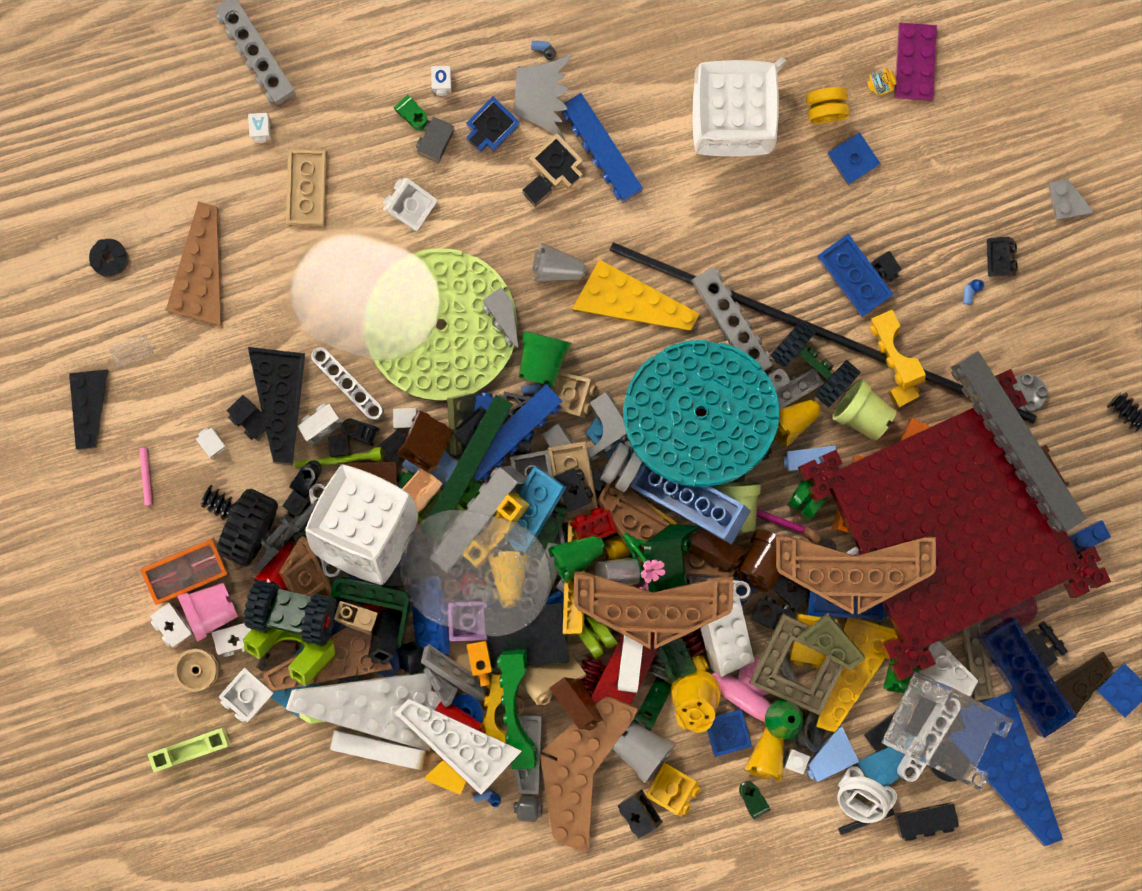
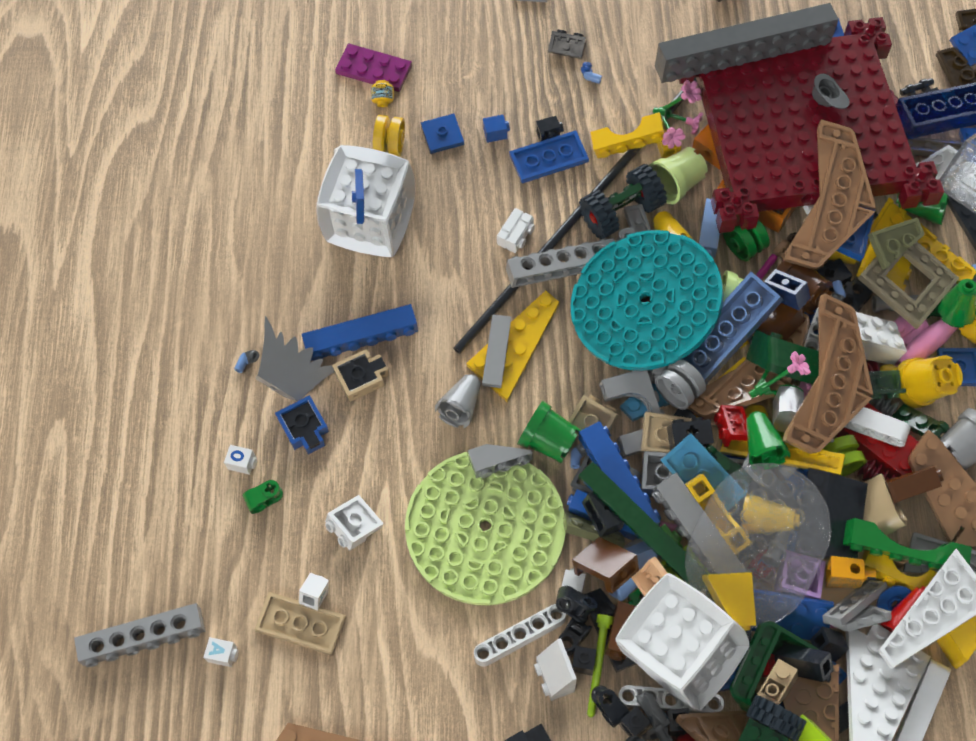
camera: 65 degrees left, 20 degrees down
(279, 386) = (506, 706): black wing -> none
(335, 189) = (313, 591): none -> white brick
(365, 297) = (435, 591): clear tile -> none
(384, 422) = (576, 605): none -> black piece
(416, 558) = (733, 595): none -> yellow slope
(435, 139) = (297, 481): dark grey brick -> none
(537, 190) = (381, 400): black brick -> none
(617, 284) = (496, 351): none -> light grey tile
(710, 102) = (358, 196): none -> blue plate
(744, 545) = (791, 289): none -> dark blue brick
(757, 266) = (515, 230): none -> white brick
(766, 600) = (839, 290): none -> medium blue arm
(873, 211) = (495, 128): none -> blue brick
(948, 399) = (674, 136): none -> bright pink plant
(981, 542) = (828, 93): none -> dark grey piece

